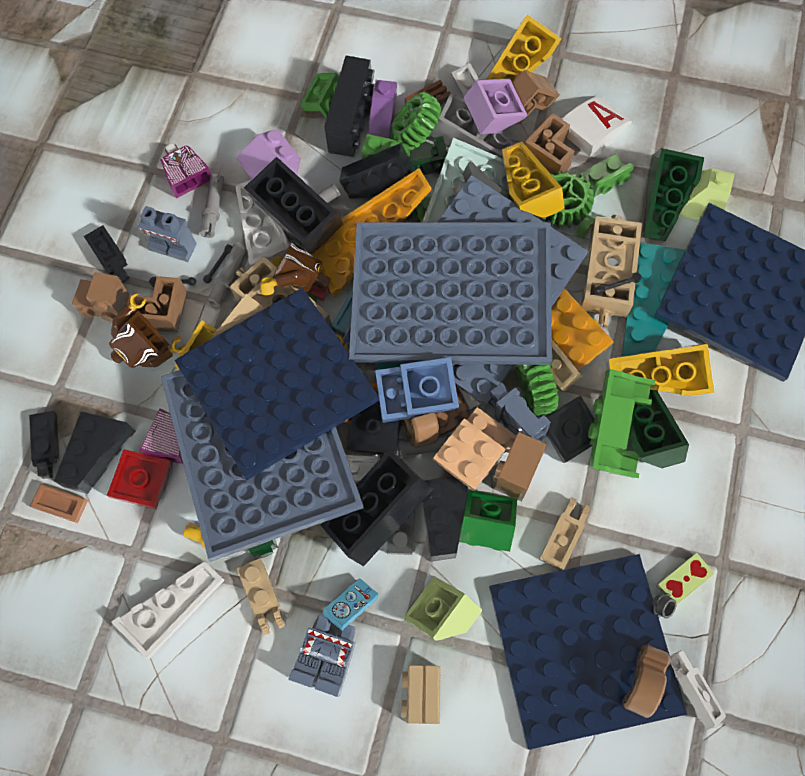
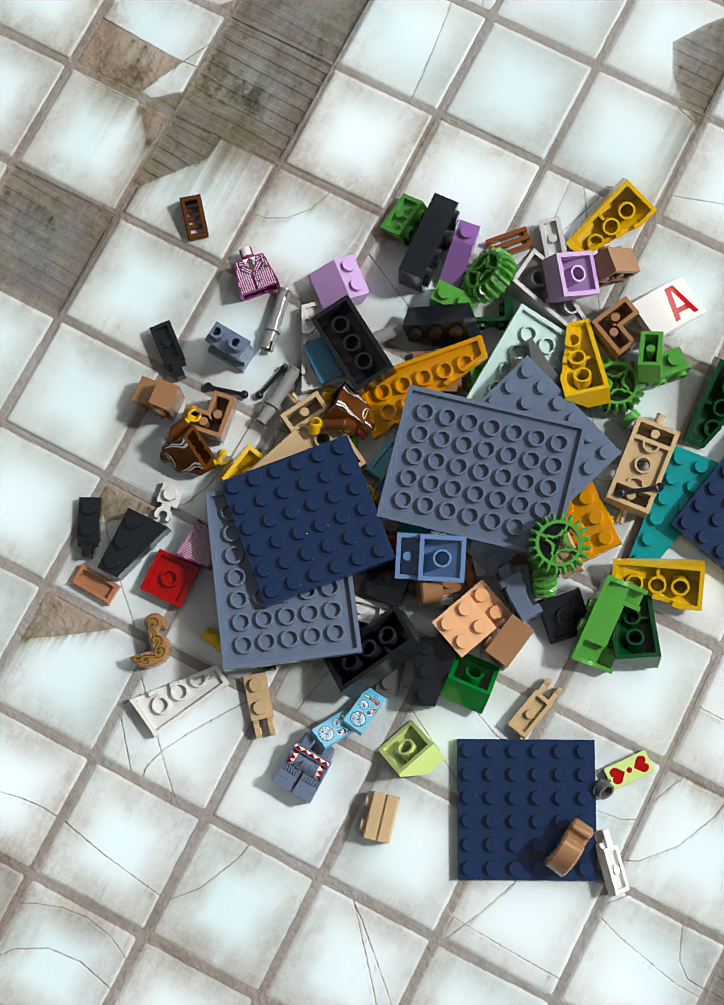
camera: 15 degrees right, 10 degrees up
(111, 116) = (192, 200): none -> reddish brown slope
(128, 395) = (169, 497): none -> white plate
(138, 553) = (159, 643): none -> medium nougat animal
(265, 231) = (322, 361): none -> dark azure tile
(378, 577) = (363, 711): none -> medium azure tile
(541, 340) = (550, 562): none -> bright green gear
(592, 160) = (650, 356): none -> bright green brick

